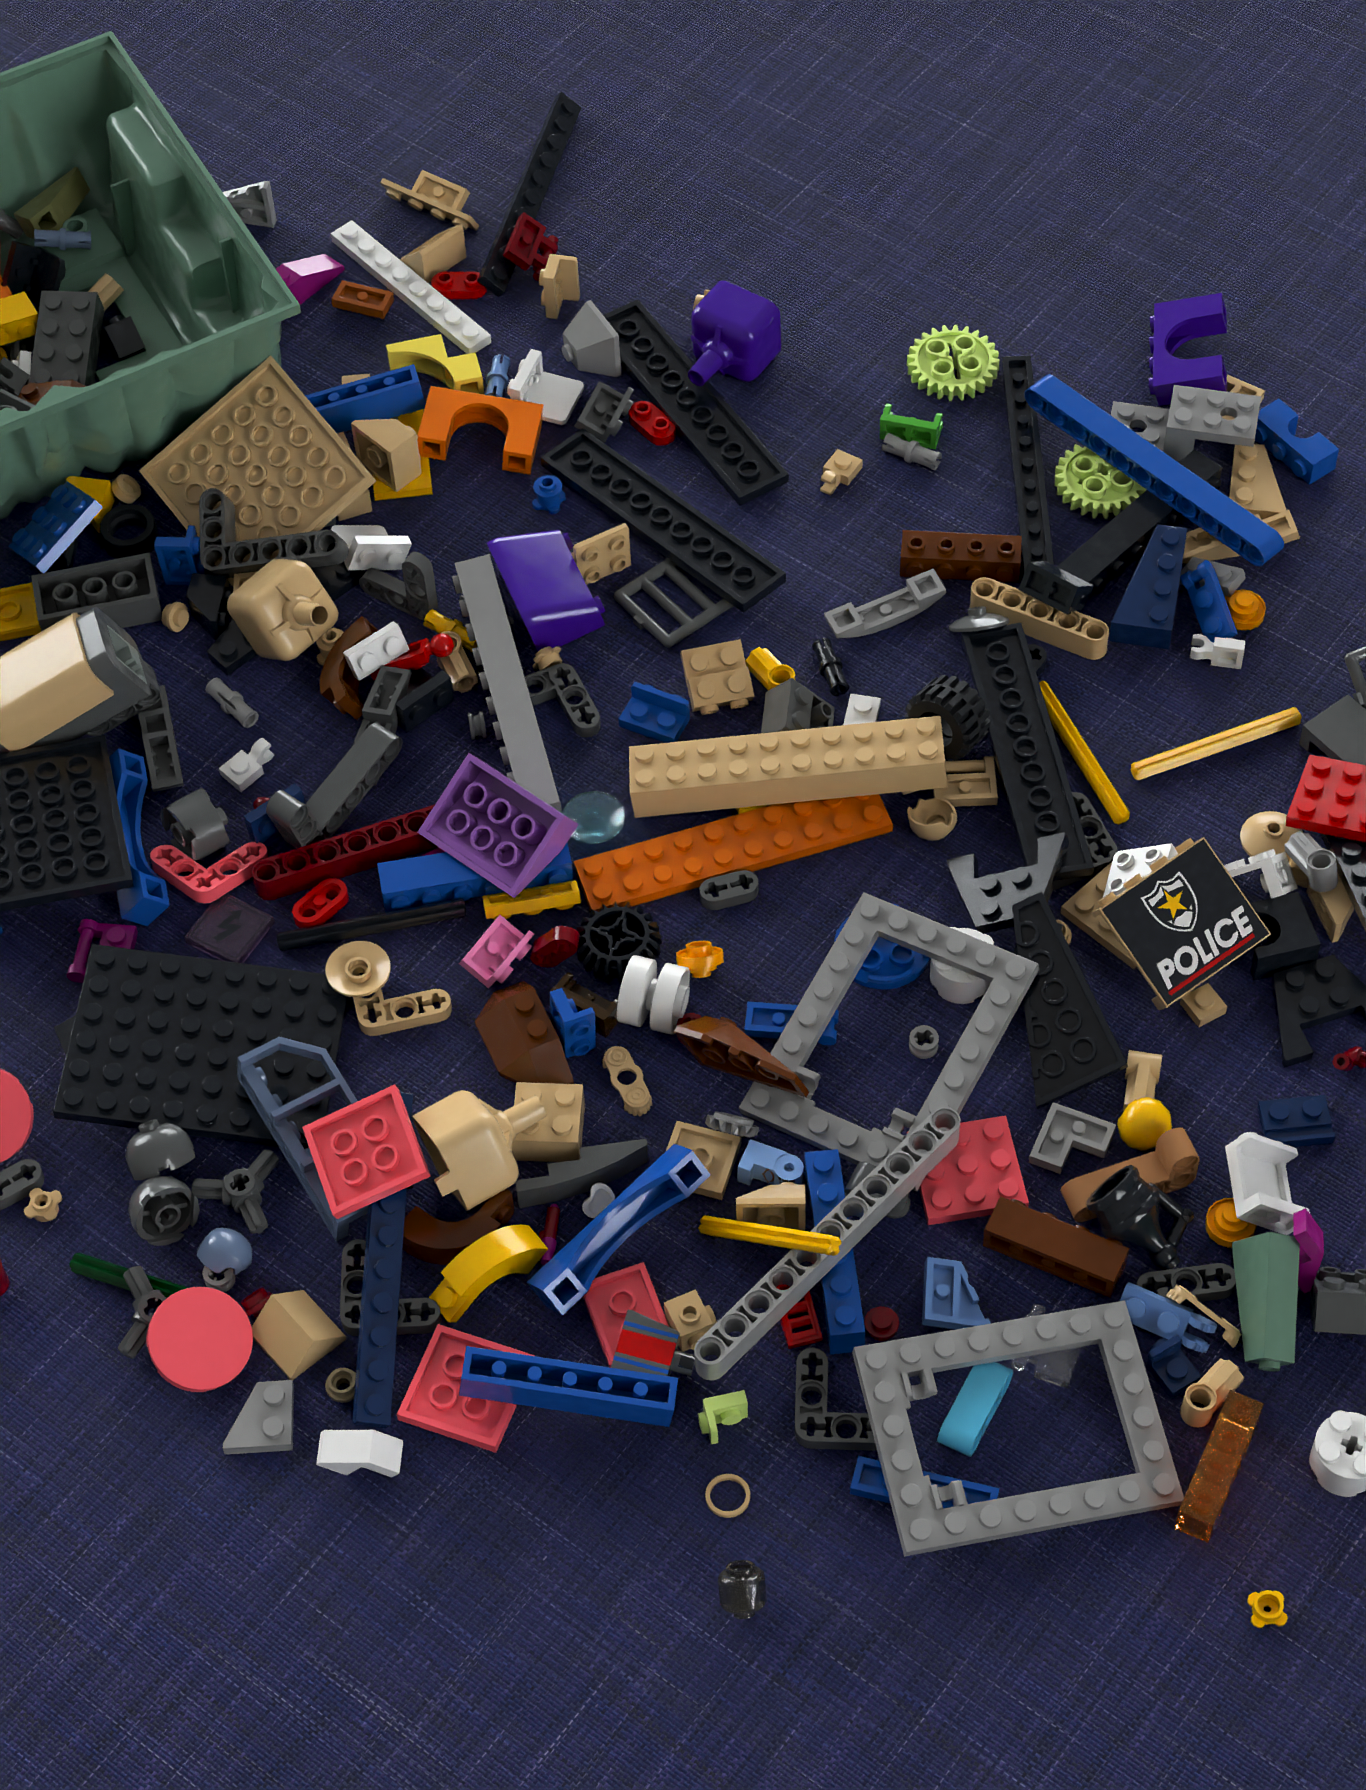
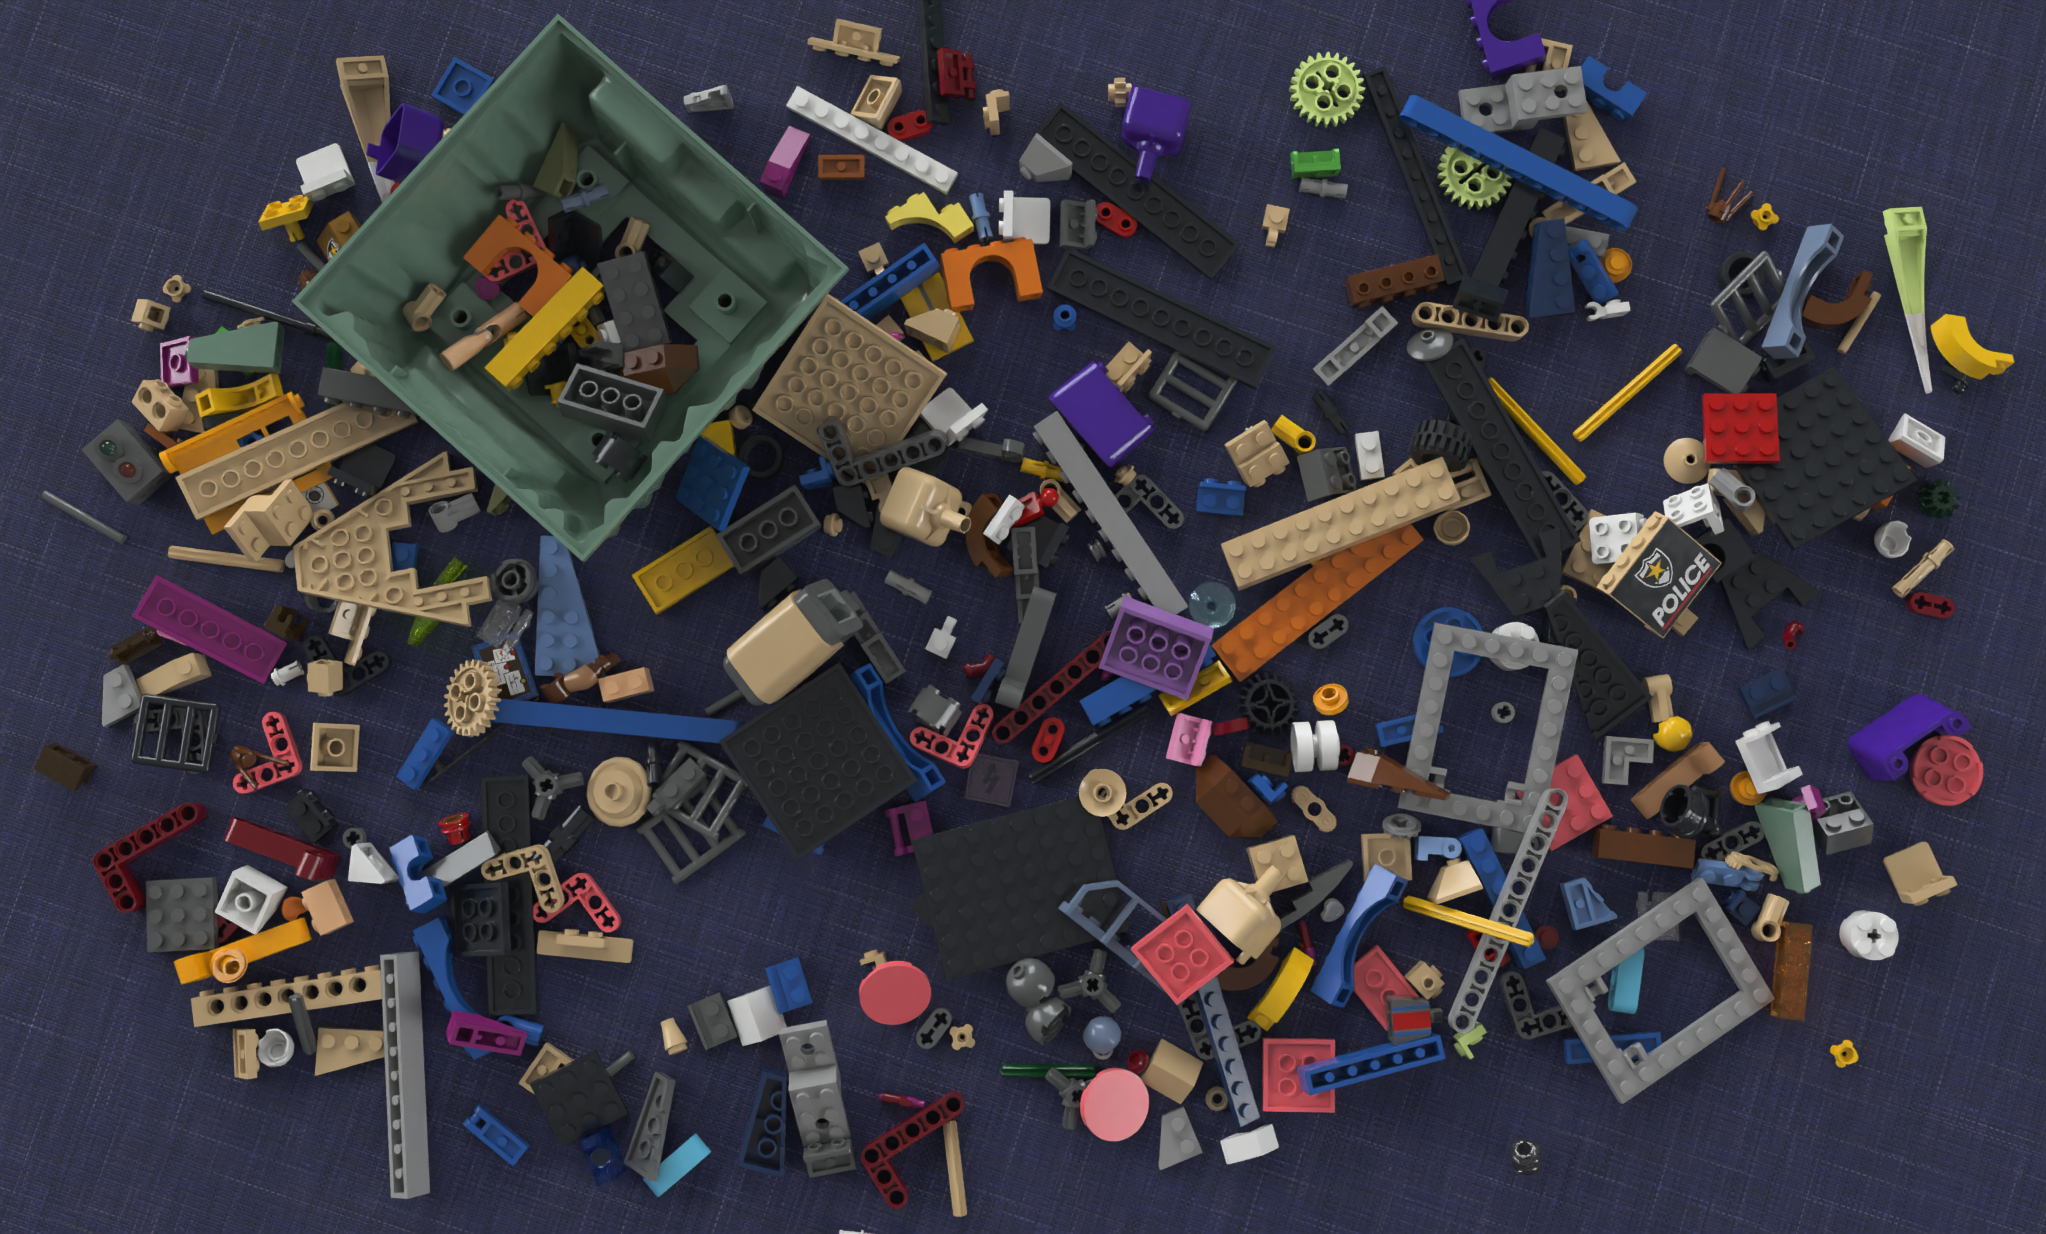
camera: 20 degrees left, 30 degrees up
(727, 1514) = (1501, 1088): tan piece -> none

